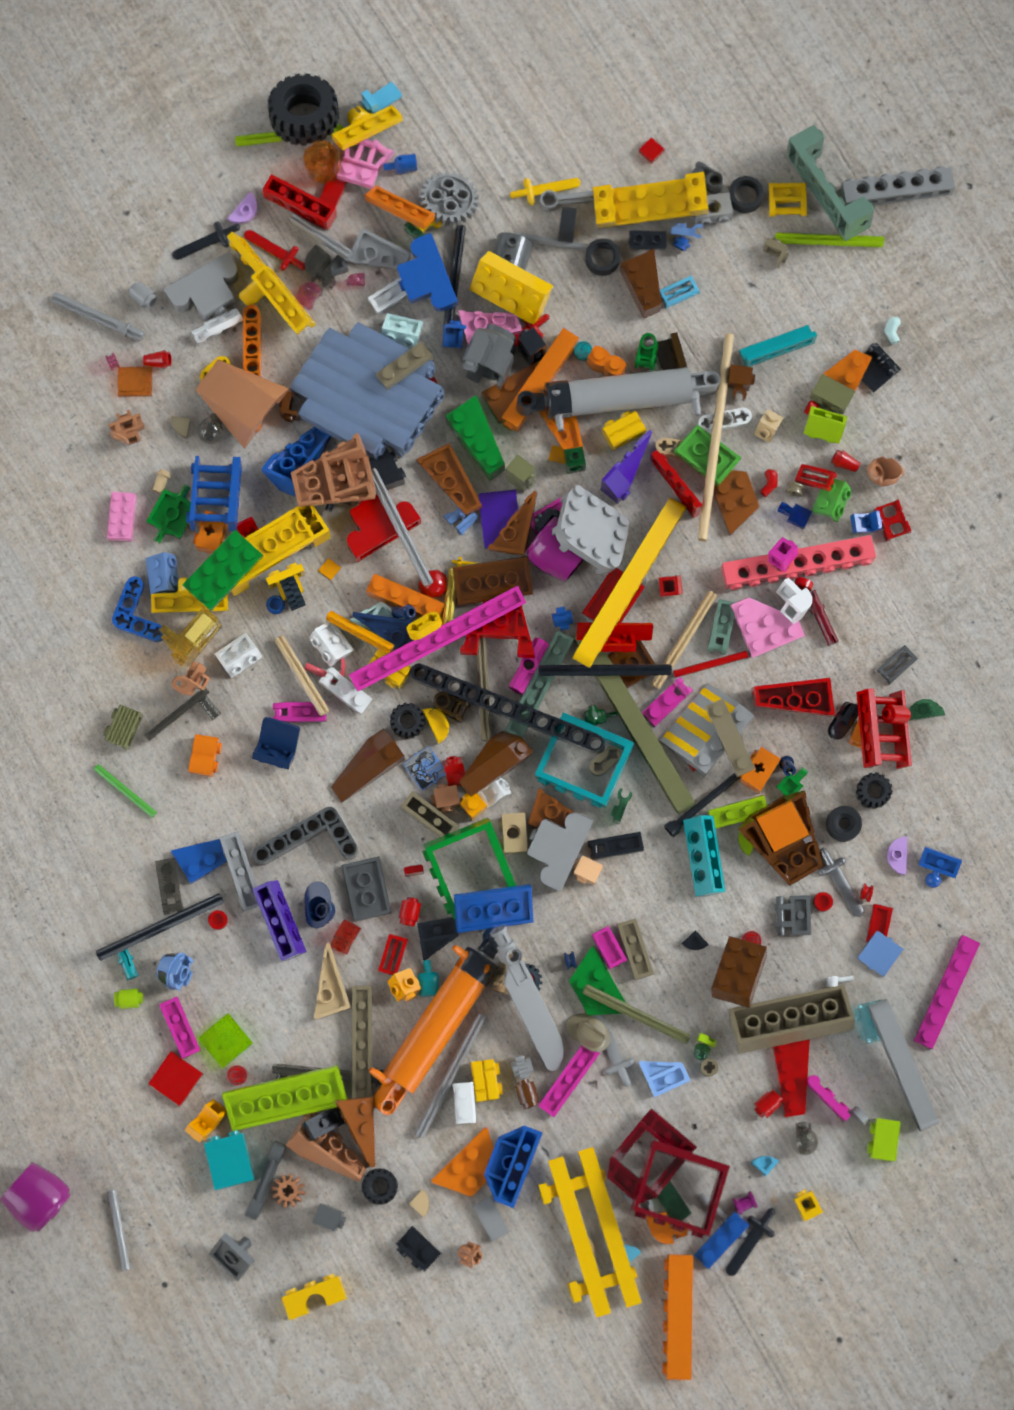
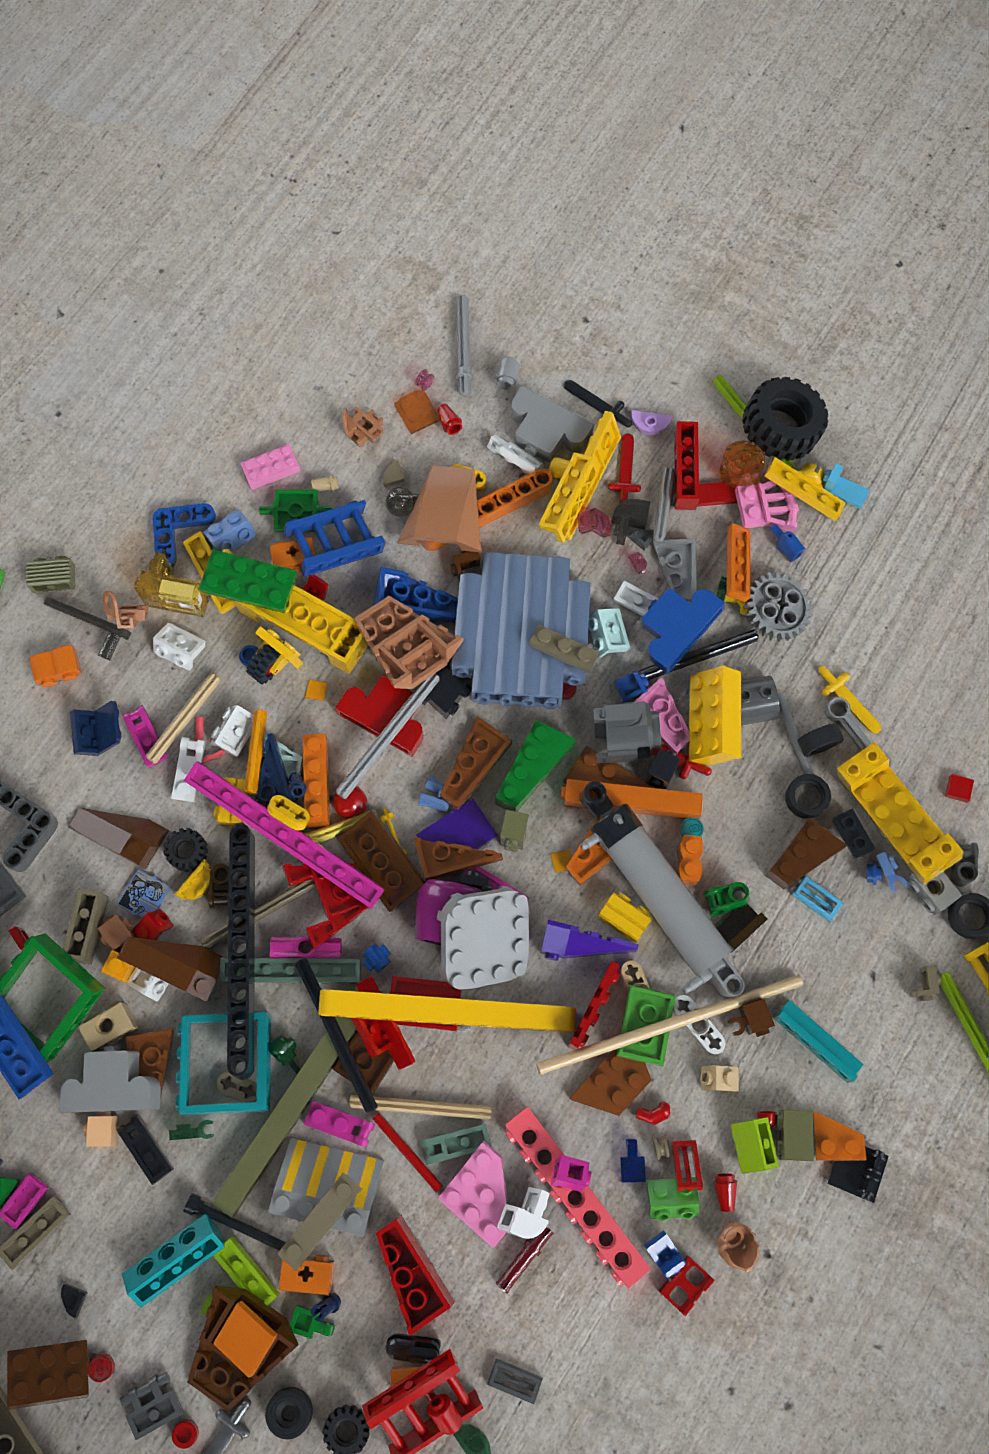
camera: 65 degrees right, 5 degrees down
(574, 460) = (562, 880): dark green brick -> none
(670, 585) = (471, 1060): red brick -> none
(803, 583) = (552, 1215): red tile -> none
(890, 329) = (914, 1165): light aqua arm -> none

